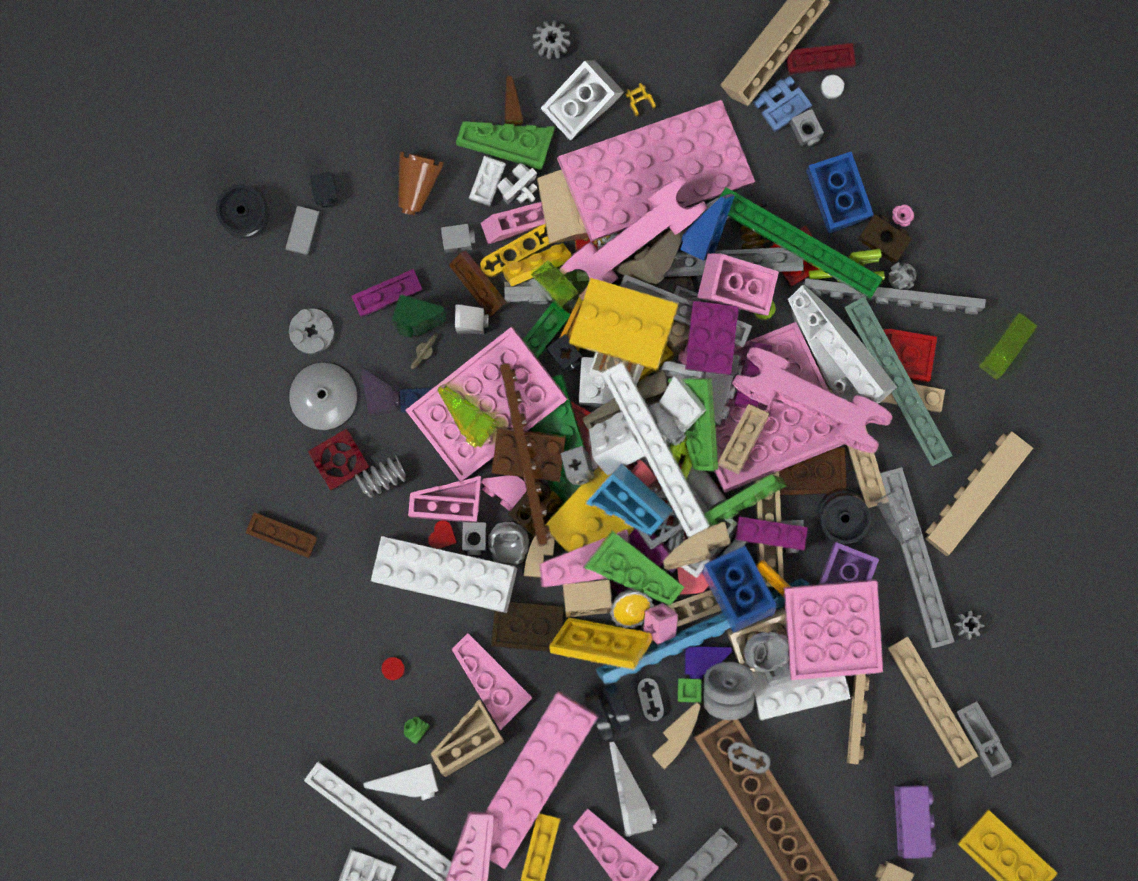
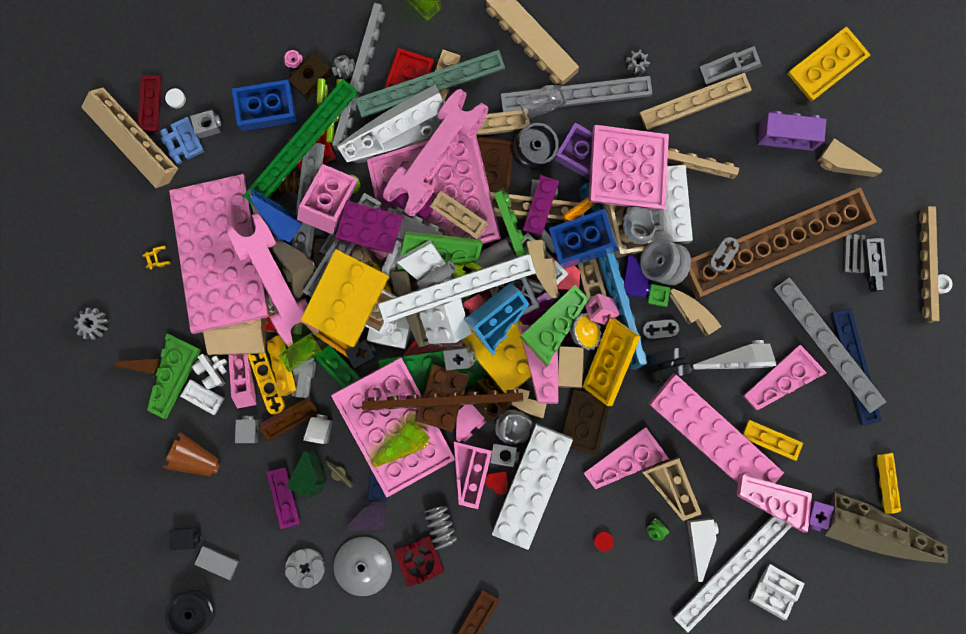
camera: 80 degrees left, 0 degrees up
(582, 99) = (146, 306): white slope -> none

